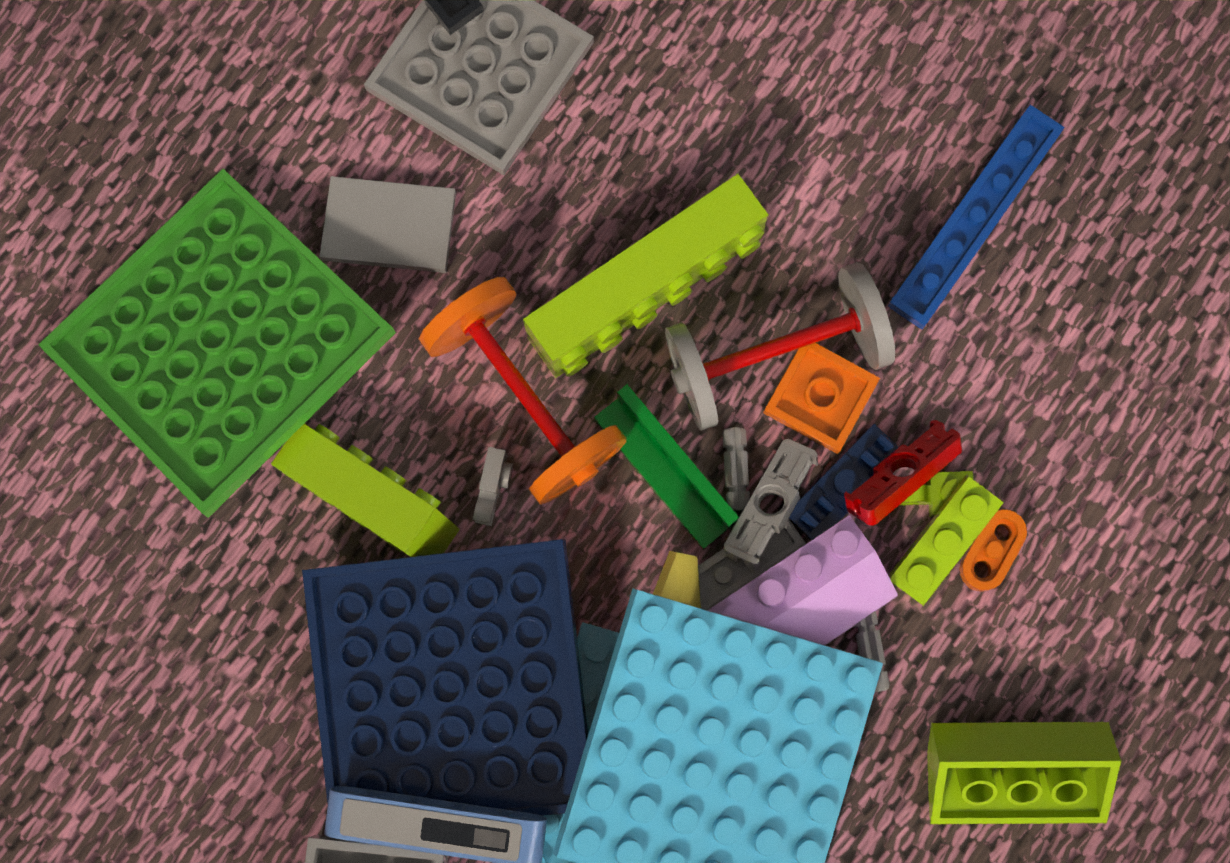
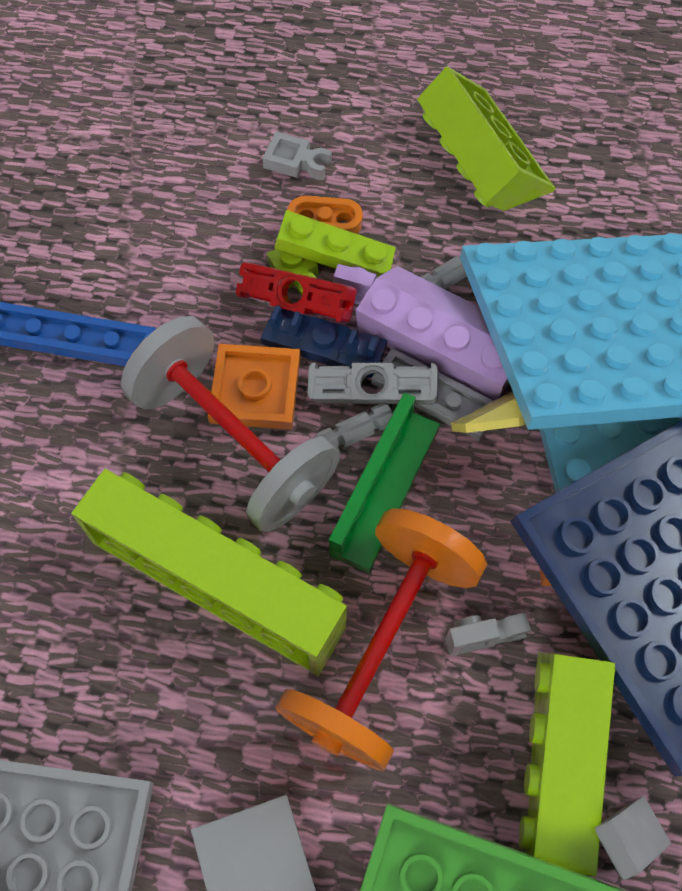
camera: 115 degrees left, 15 degrees down
(282, 509) = (632, 837): none -> light grey tile
(894, 539) = (354, 277): none -> lavender plate
(1091, 551) = (292, 154): none -> light grey plate

